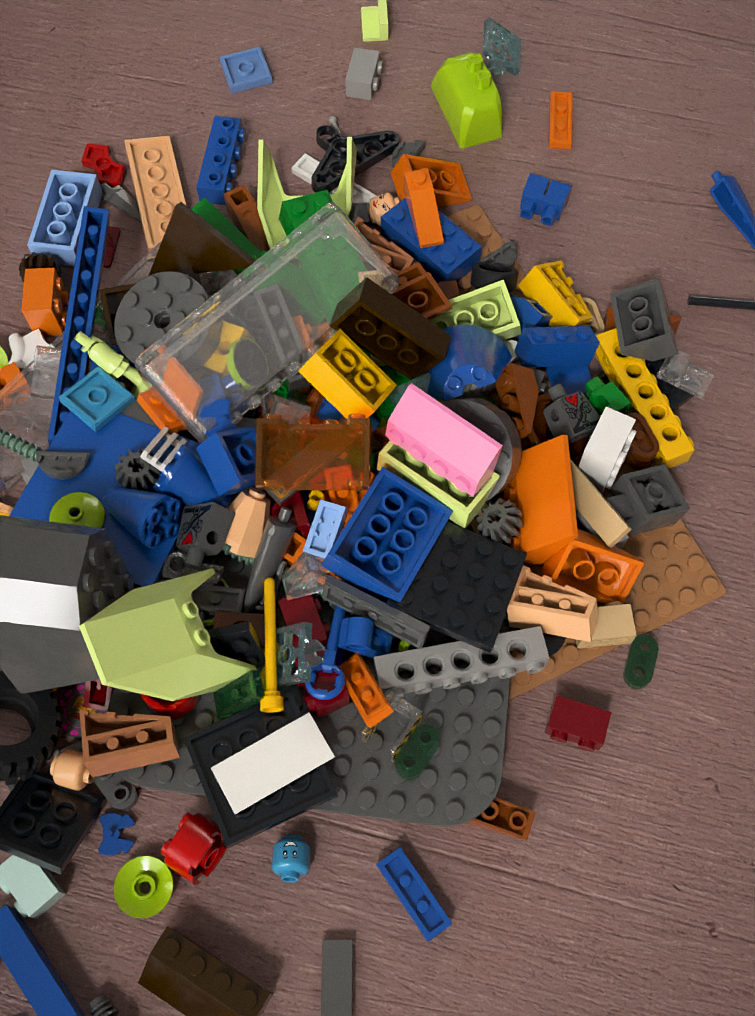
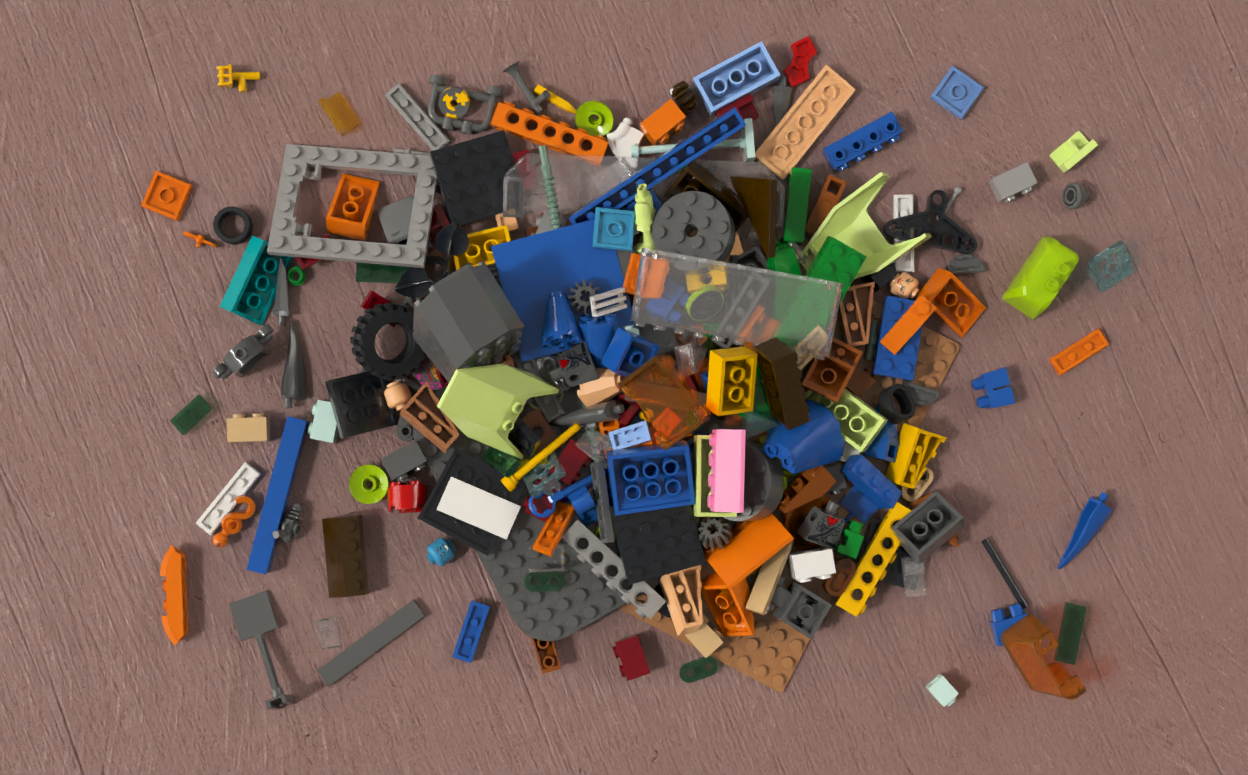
camera: 50 degrees right, 20 degrees up
(63, 464) = (556, 246): dark grey tile -> none
(91, 510) = (527, 293): lime dish -> none
(111, 843) = (386, 439): blue piece -> none
(127, 243) = (745, 141): none -> light aqua tile
(152, 814) = (405, 461): none -> dark grey brick
(219, 410) = (652, 320): blue piece -> none
(414, 37) = (1074, 196): none -> dark grey brick

